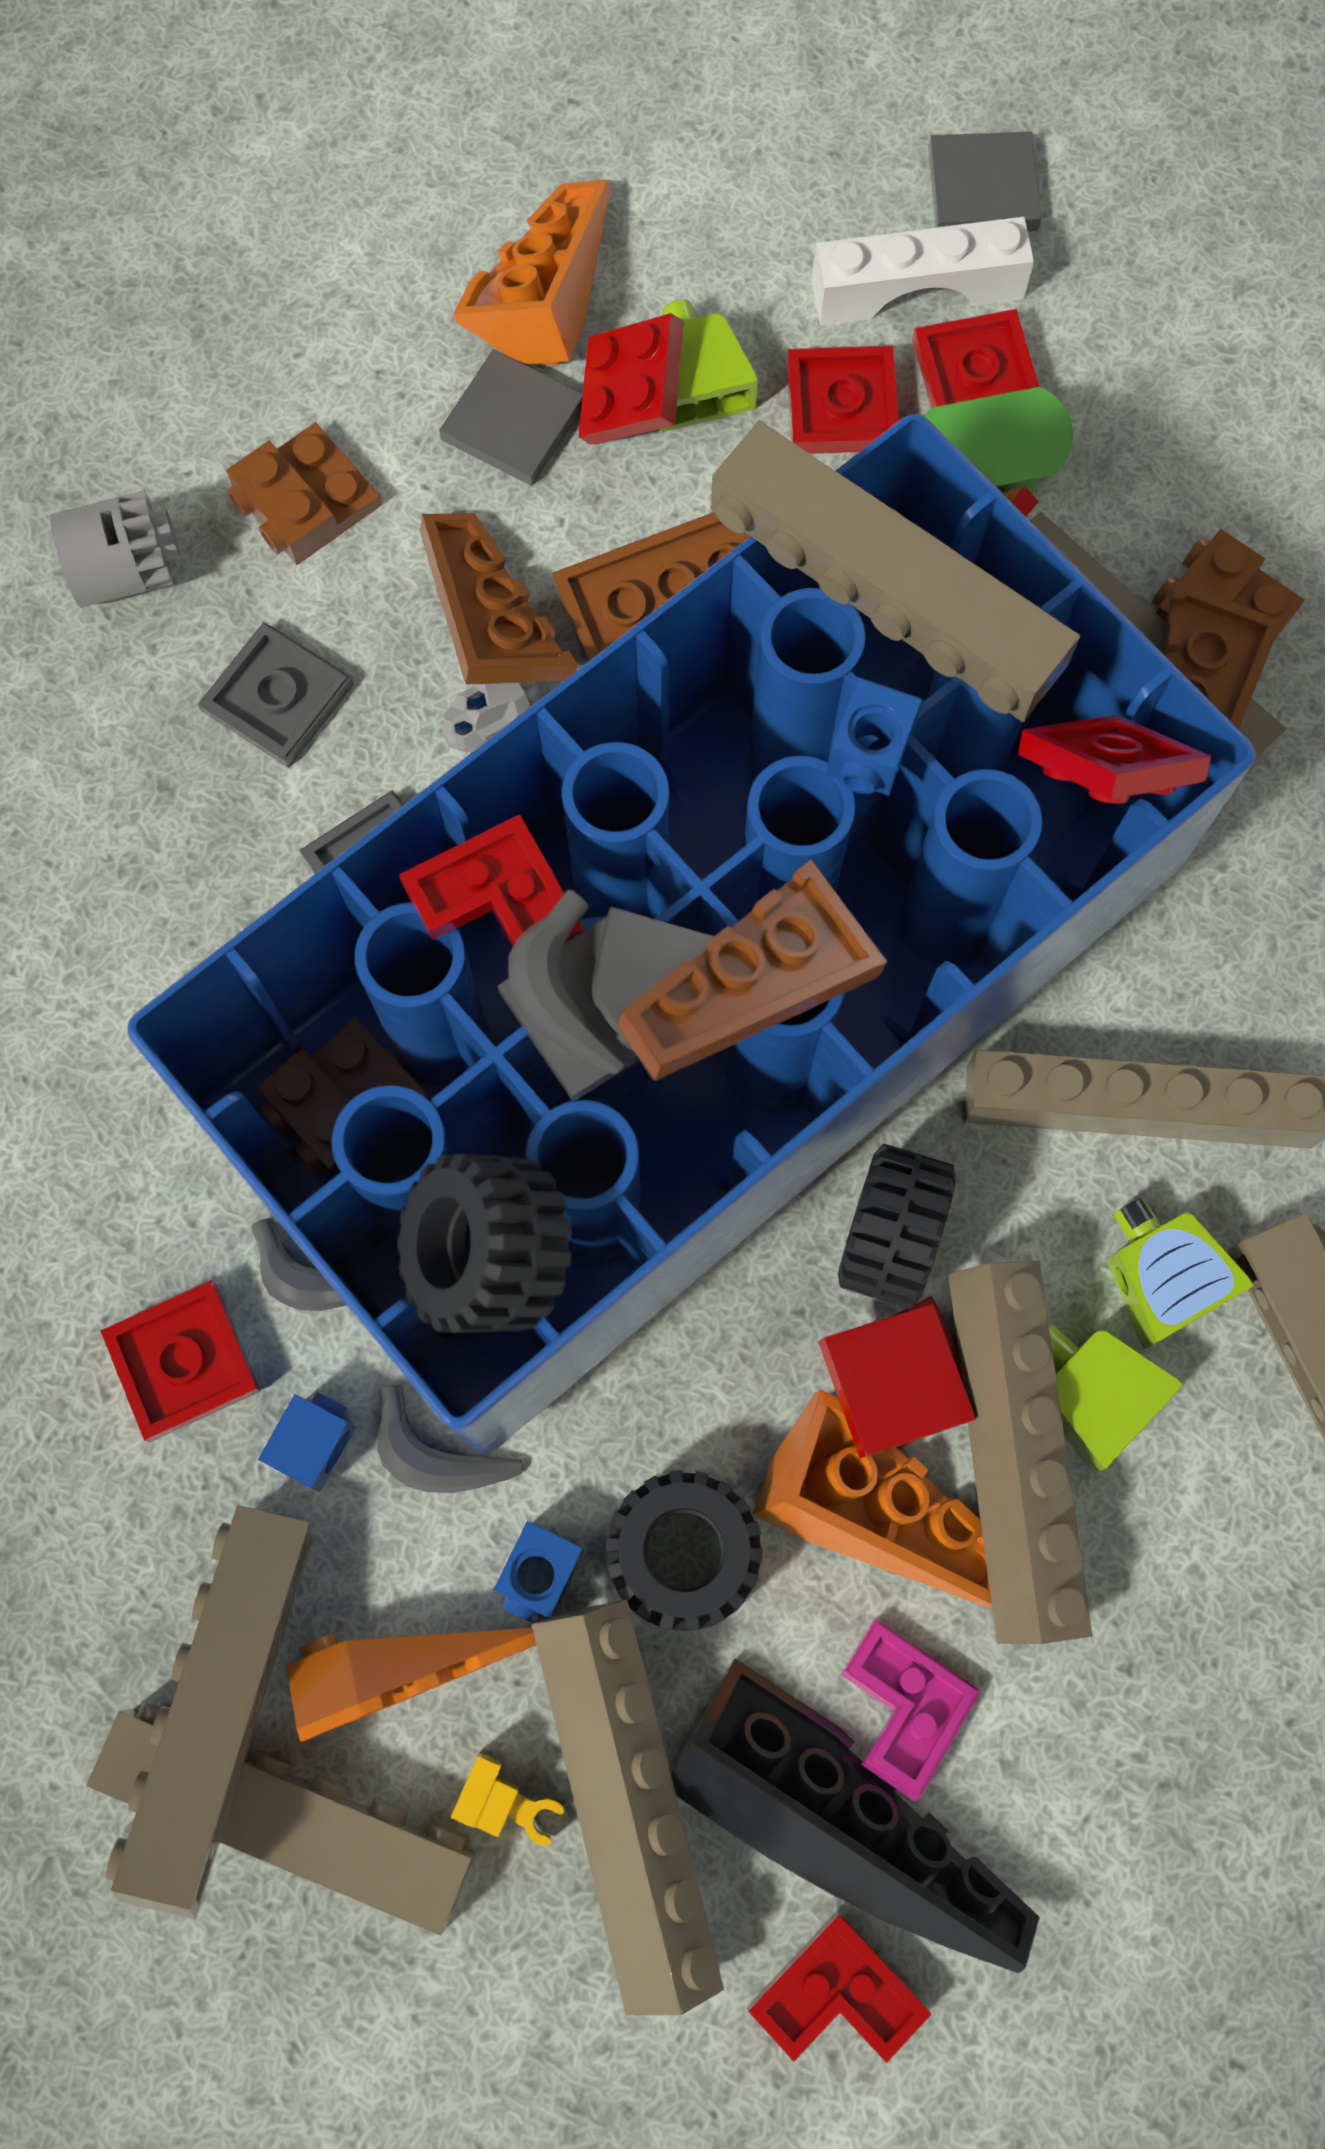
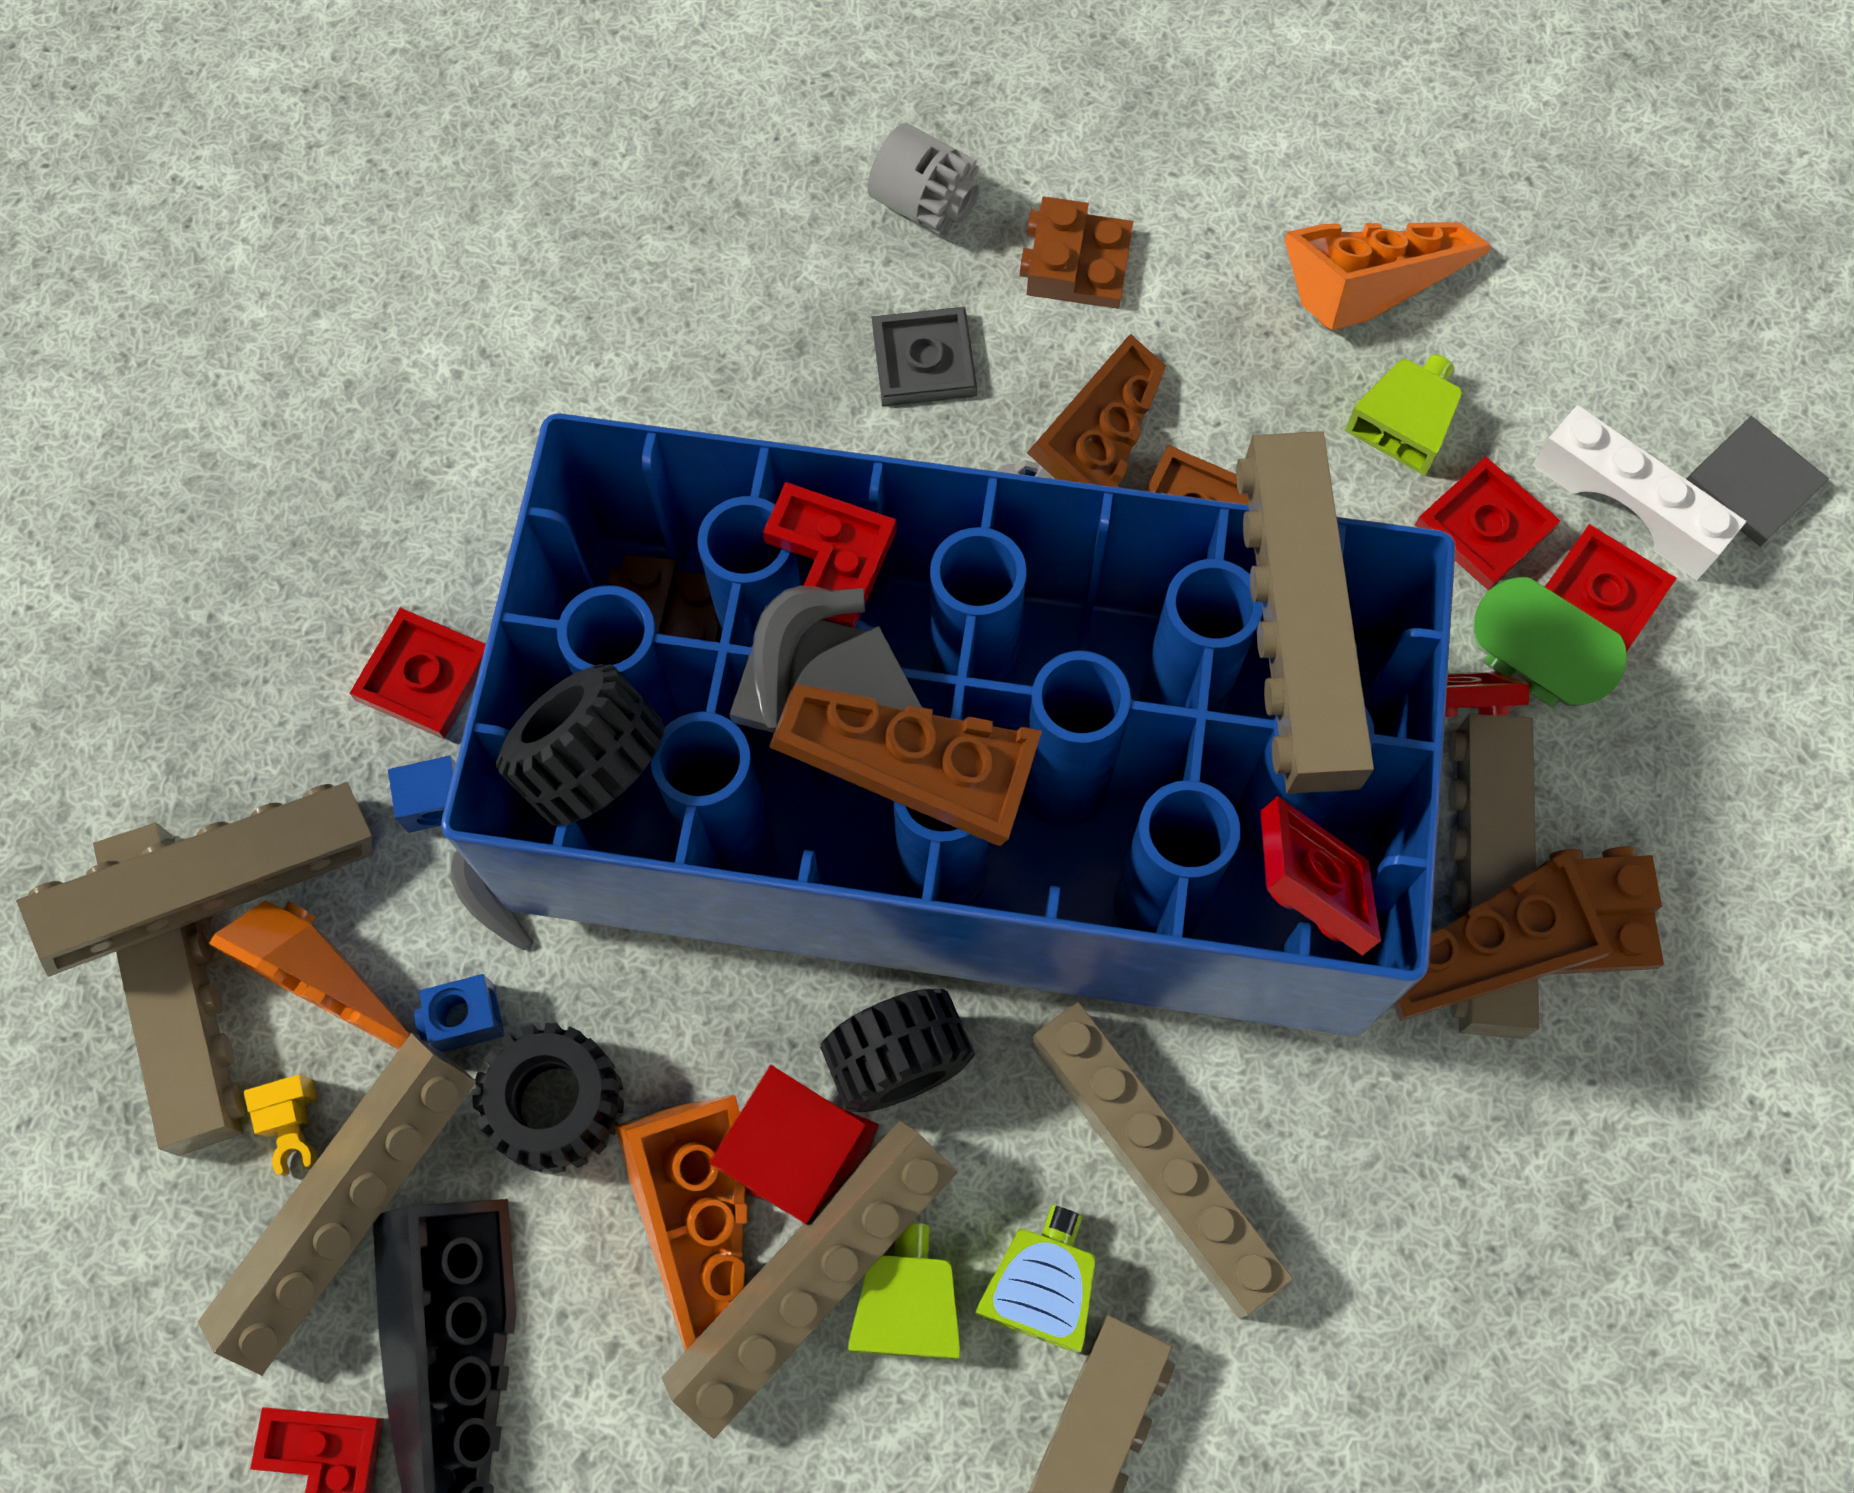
camera: 50 degrees right, 5 degrees down
(512, 417) = (1259, 332): dark grey tile -> none
(631, 379) = (1354, 376): red plate -> none
(877, 713) = (1181, 677): blue brick -> none
(925, 1706) = (579, 1361): dark pink tile -> none

